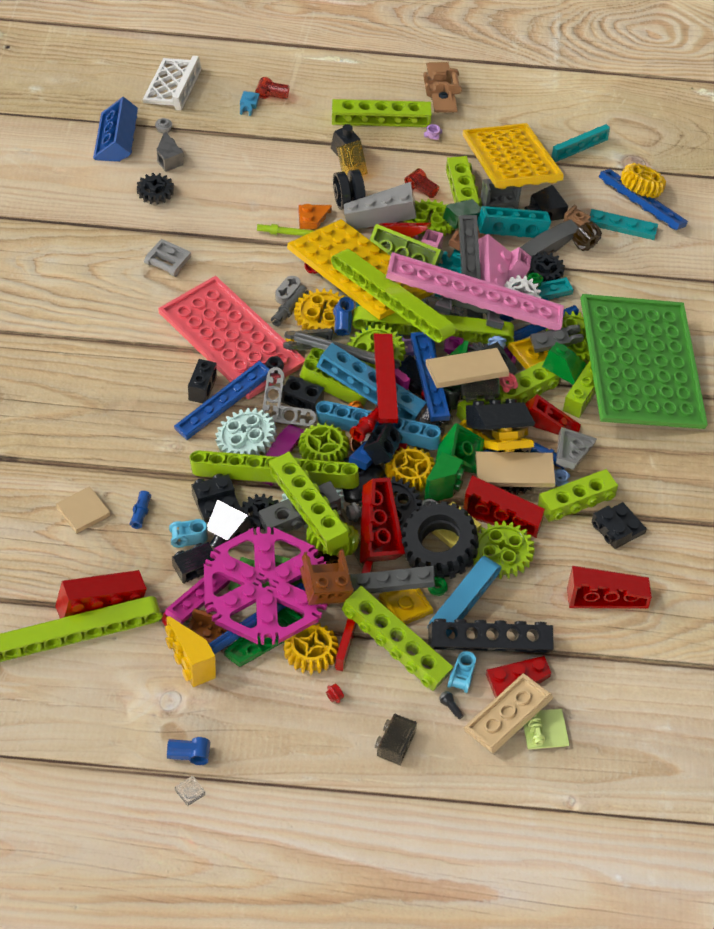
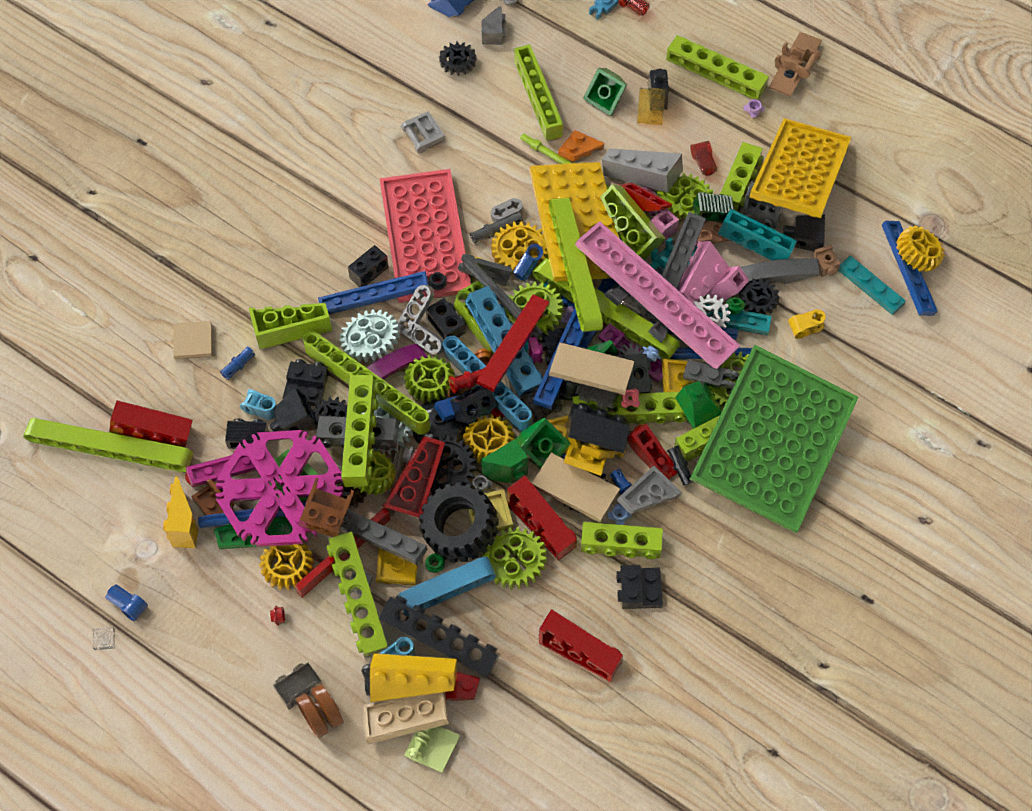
camera: 35 degrees right, 10 degrees up
(165, 456) = (288, 323): none -> lime wedge
(248, 186) = (538, 92): none -> lime brick
(304, 164) = (605, 90): none -> green slope
(348, 187) = (625, 134): black wheel -> none
(435, 746) = (322, 709): none -> dark orange wheel
(492, 678) = (410, 676): none -> yellow wedge
(580, 143) = (896, 180): teal plate -> none
(581, 418) = (680, 465): none -> black pin
(587, 236) = (820, 283): dark brown gear -> none
(597, 271) = (807, 324): none -> yellow piece

